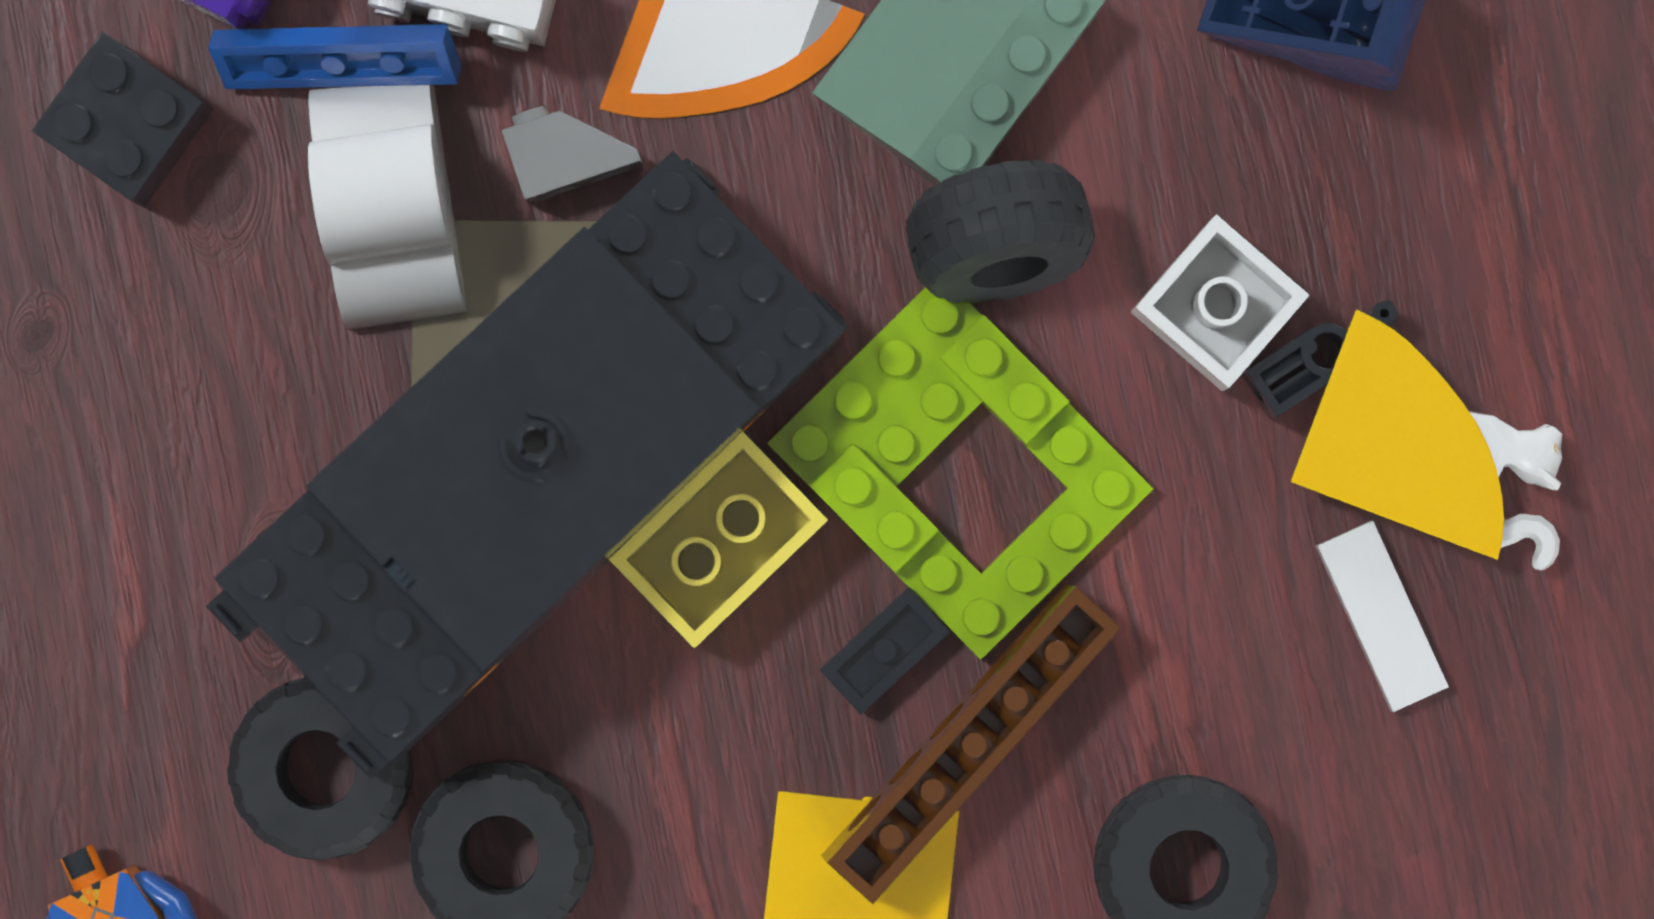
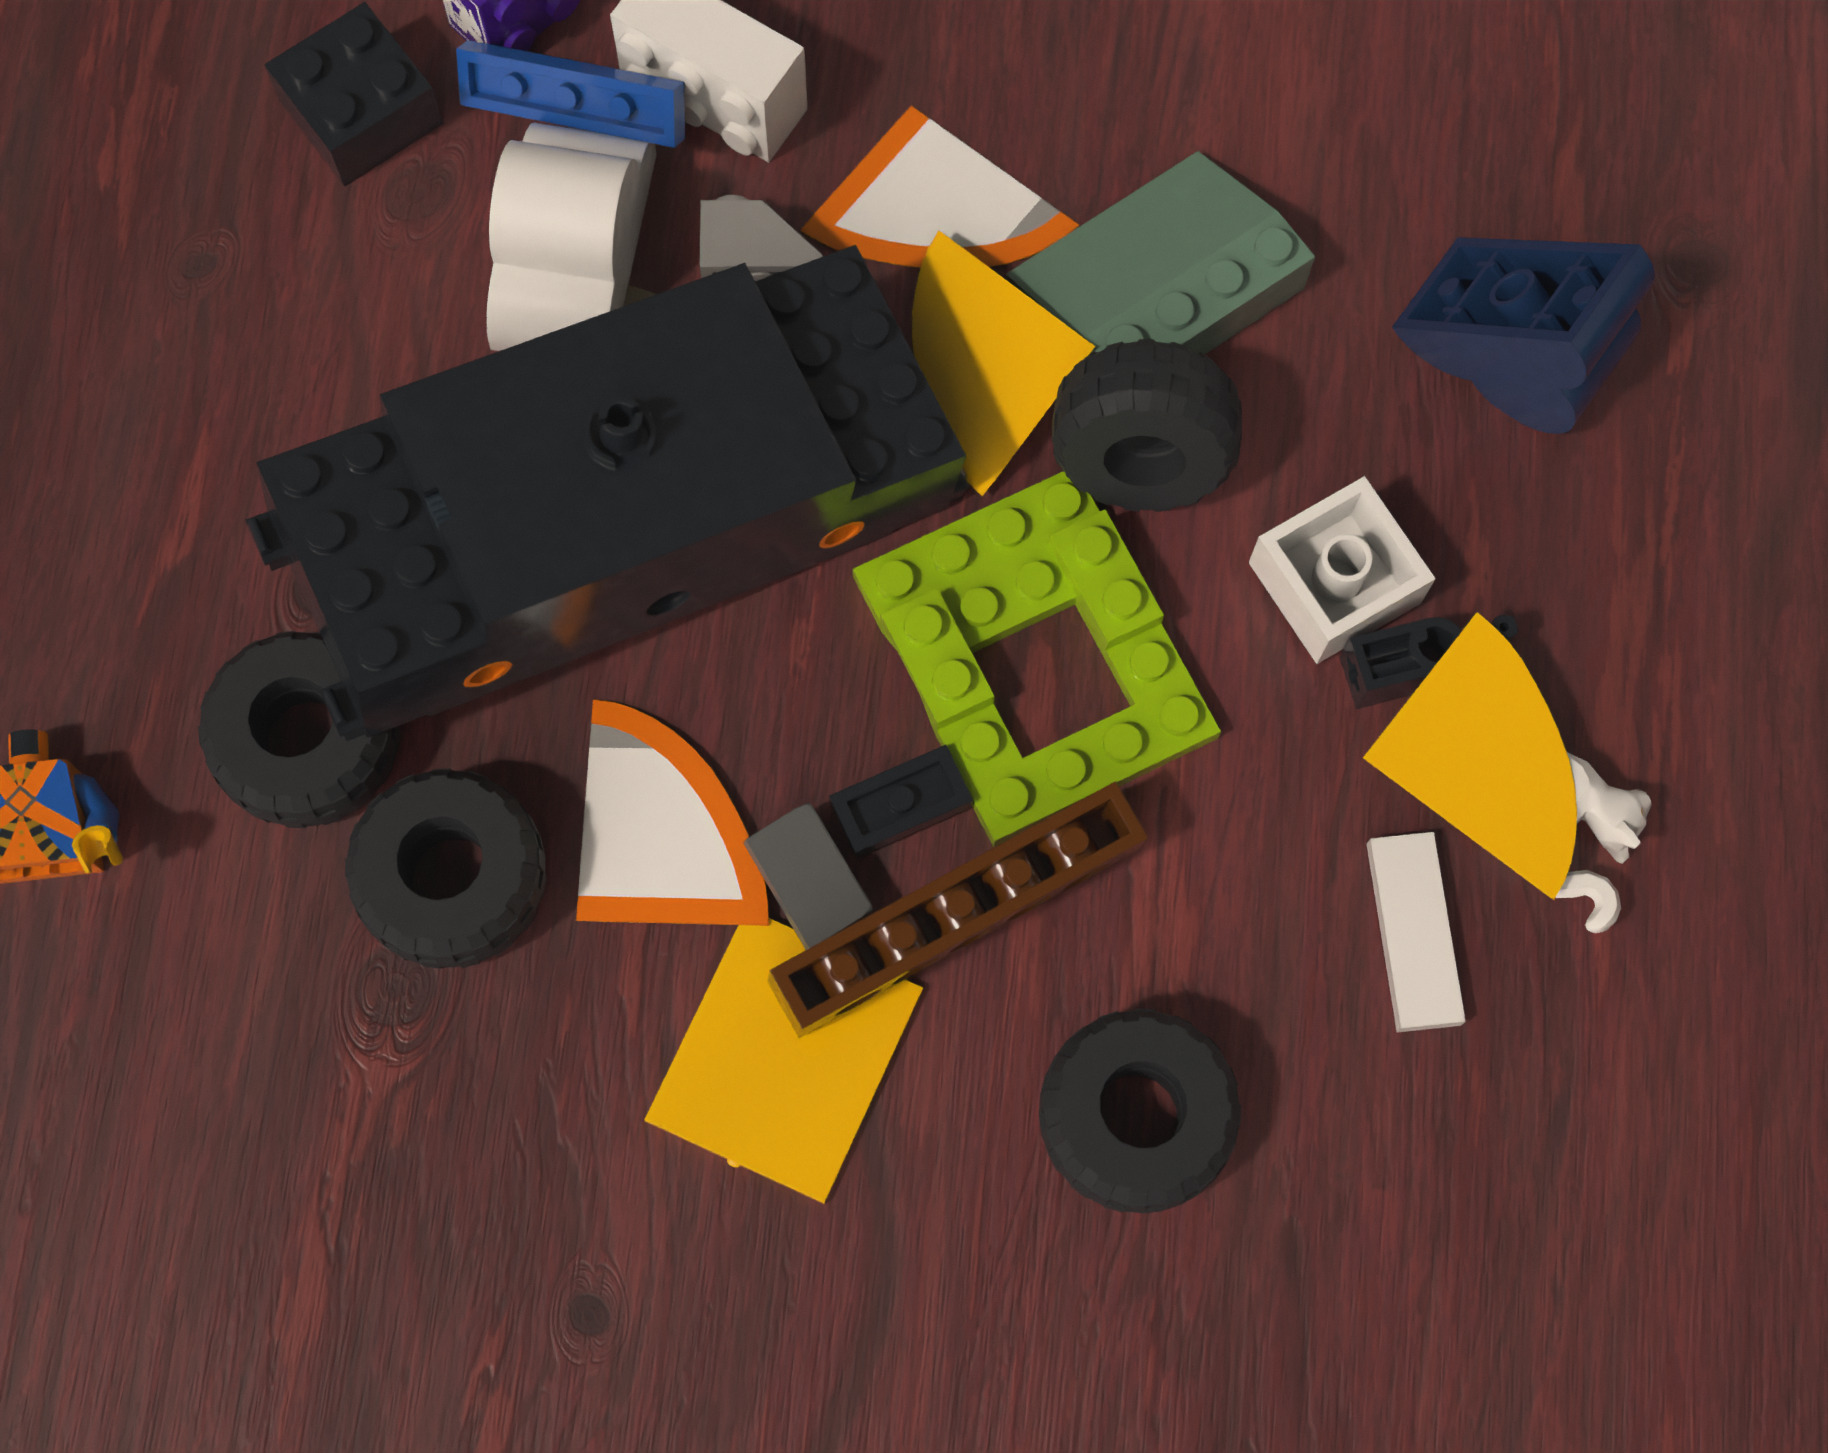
camera: 15 degrees right, 15 degrees down
(676, 744) = (660, 831): none -> white sticker
(718, 539) = (774, 635): light yellow brick -> none
(822, 194) = (987, 355): none -> yellow sticker
(825, 749) = (808, 876): none -> dark grey slope

